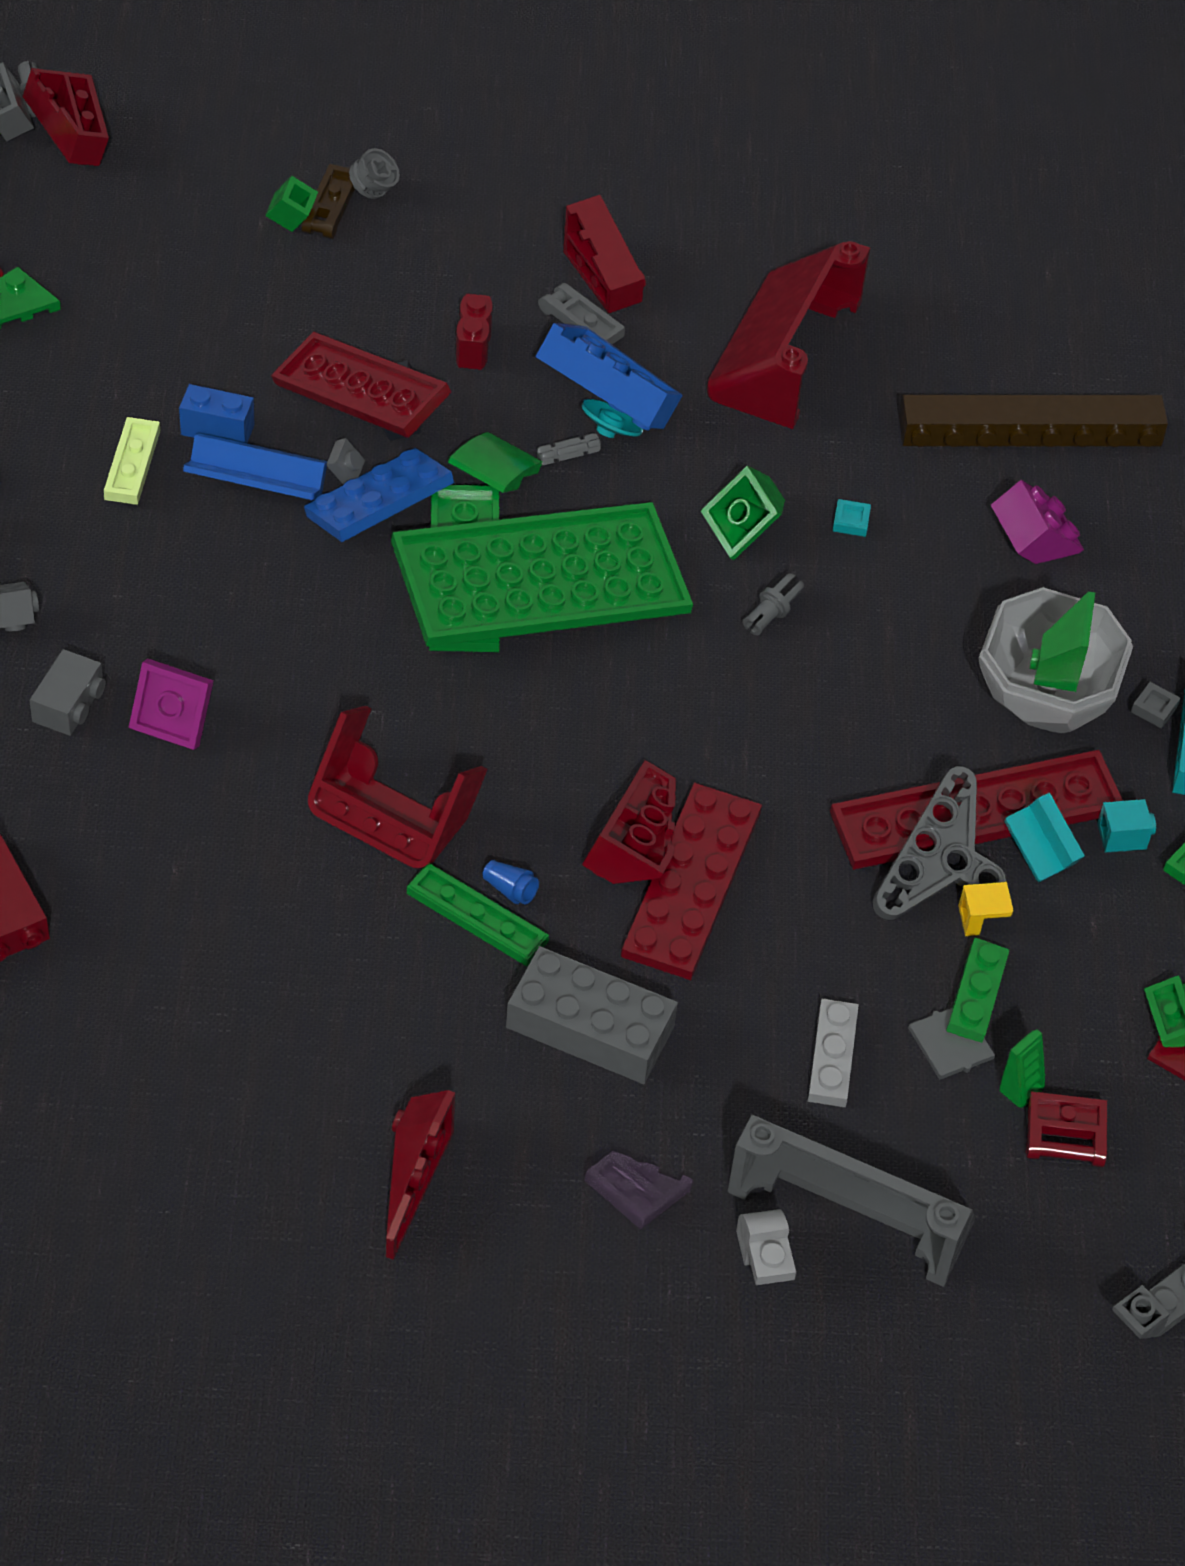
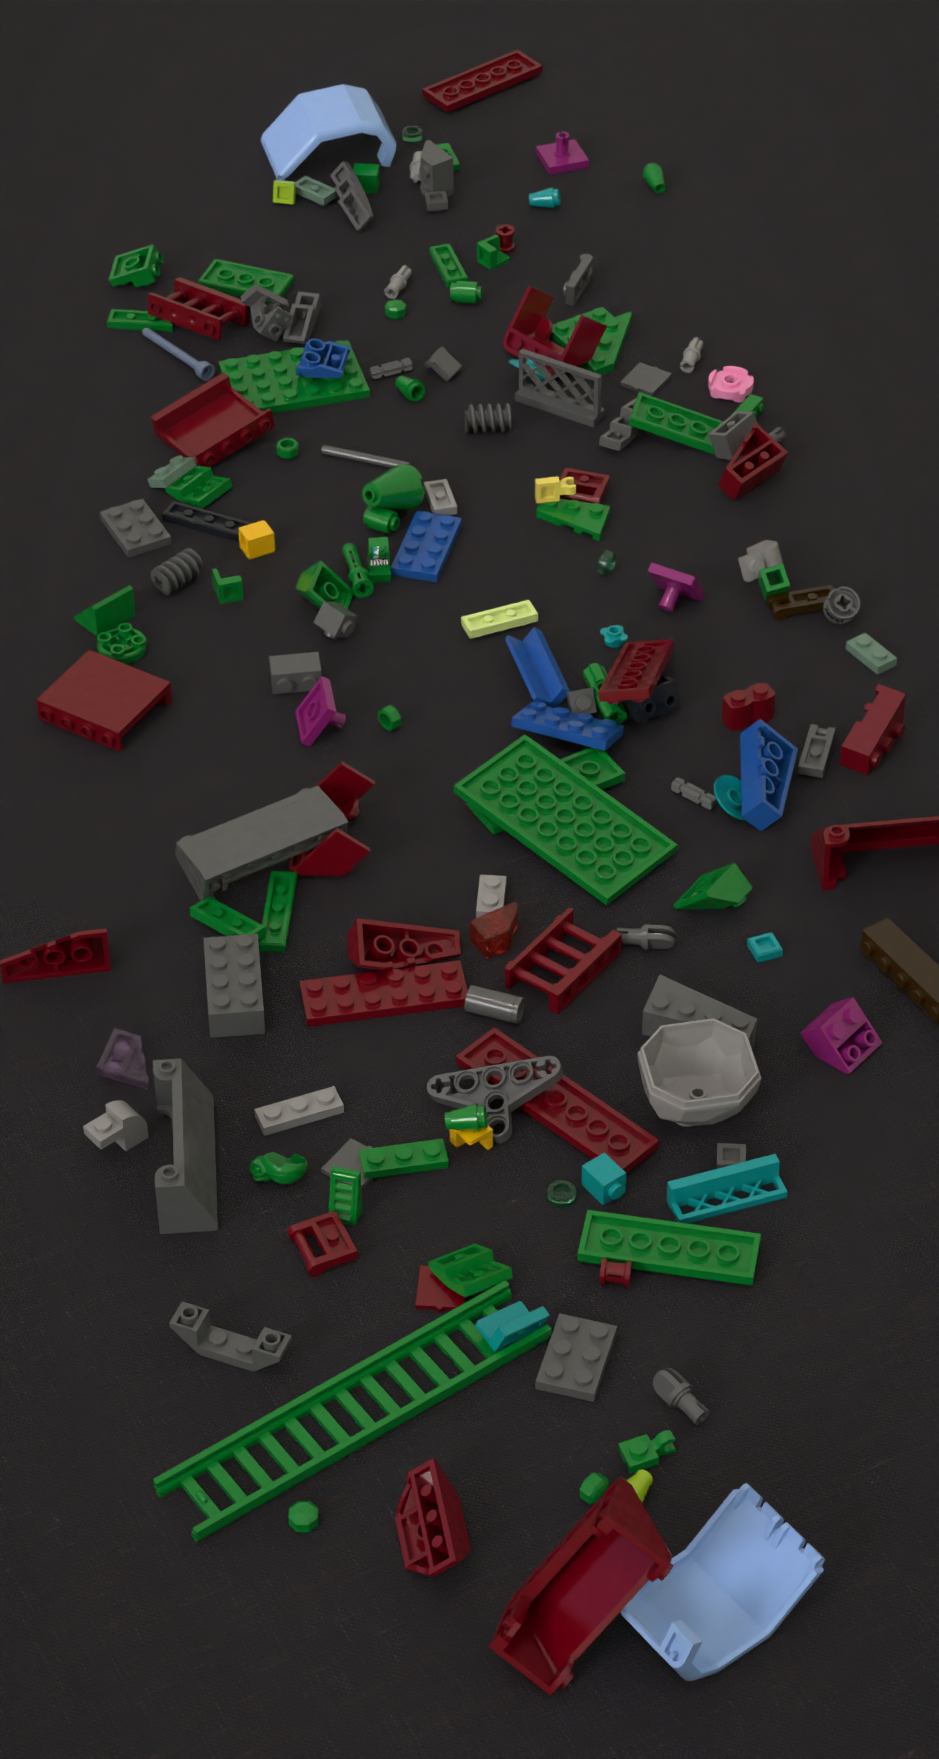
camera: 65 degrees right, 10 degrees down
(118, 320) = (606, 562): none -> clear green tile
(216, 414) = (565, 633): blue brick -> none
(224, 282) = (675, 584): none -> magenta tile
(226, 644) = (389, 718): none -> green tile
(243, 190) = (759, 557): none -> light grey brick
(247, 379) = (614, 636): none -> teal plate
(365, 439) = (594, 677): none -> green piece
(383, 867) = (258, 840): none -> dark grey windscreen
(457, 196) = (871, 653): none -> sand green plate
(471, 970) = (225, 919): none -> green plate
(495, 462) = (644, 761): green slope -> none
(513, 882) = (311, 913): blue cone -> none
(602, 705) = (490, 894): none -> light grey plate
(674, 727) = (495, 930): none -> clear red slope
(783, 669) = (573, 979): none -> dark red fence
(791, 786) = (494, 1004): none -> dark grey pin
(929, 1110) = (278, 1168): none -> green hair
(934, 628) = (677, 1003): none -> dark grey wedge
(991, 892) = (467, 1118): none -> green cone
(1044, 838) = (553, 1139): teal panel -> none
(1064, 648) = (686, 1054): green slope -> none
(1114, 875) = (561, 1194): none -> clear green tile

